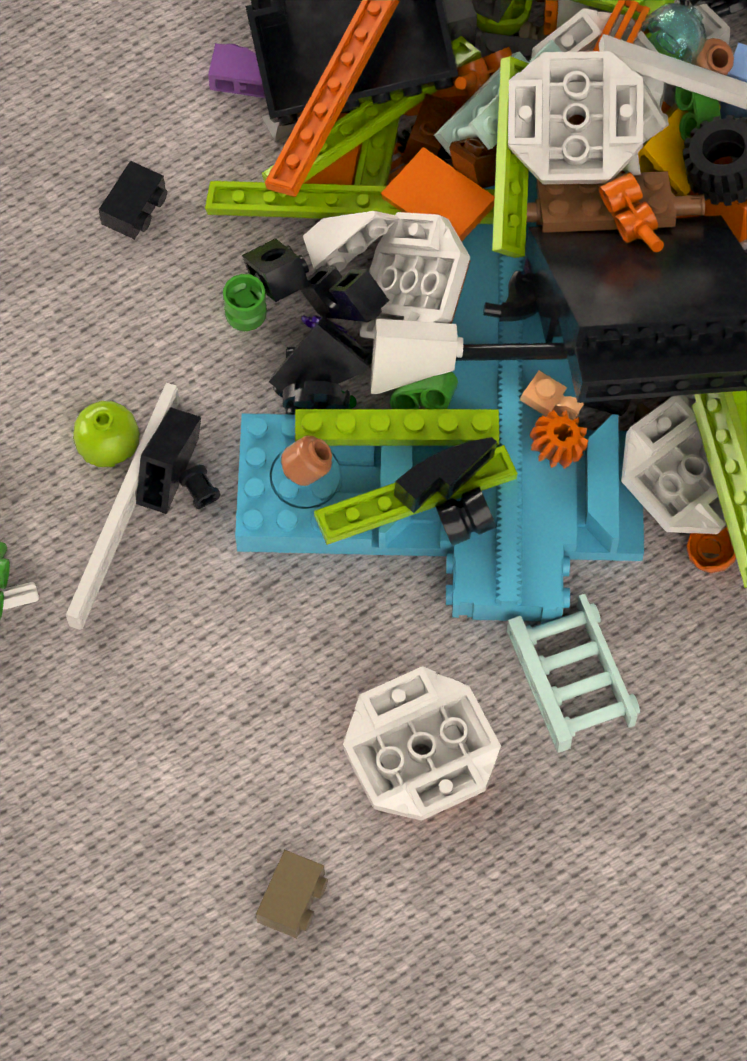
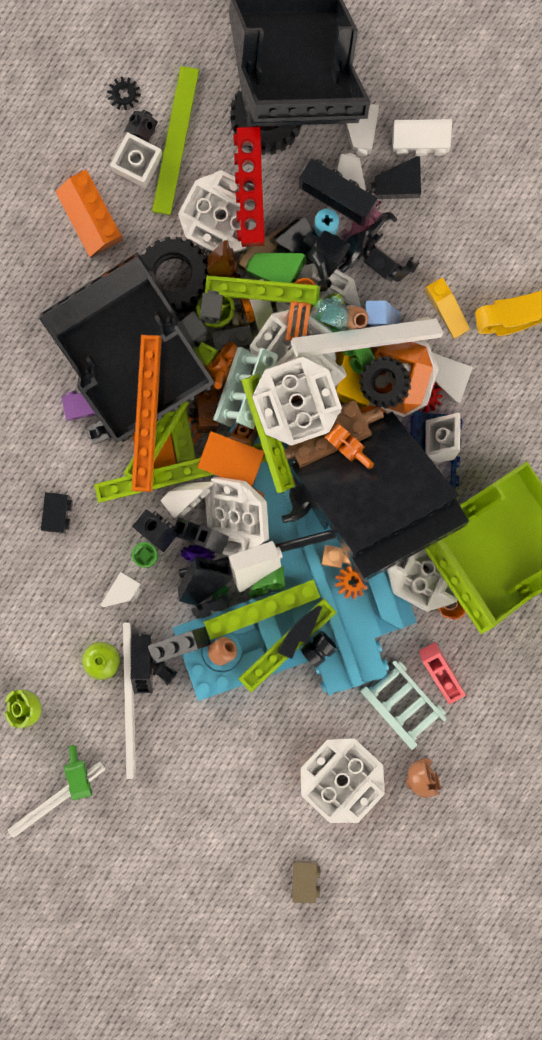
camera: 20 degrees left, 20 degrees up
(184, 344) = (122, 591): none -> white slope
(250, 116) = (98, 433): none -> black tile
(260, 428) = (179, 645): none -> arch
(558, 797) = (422, 779): none -> nougat cylinder
(656, 649) = (441, 672): none -> coral slope

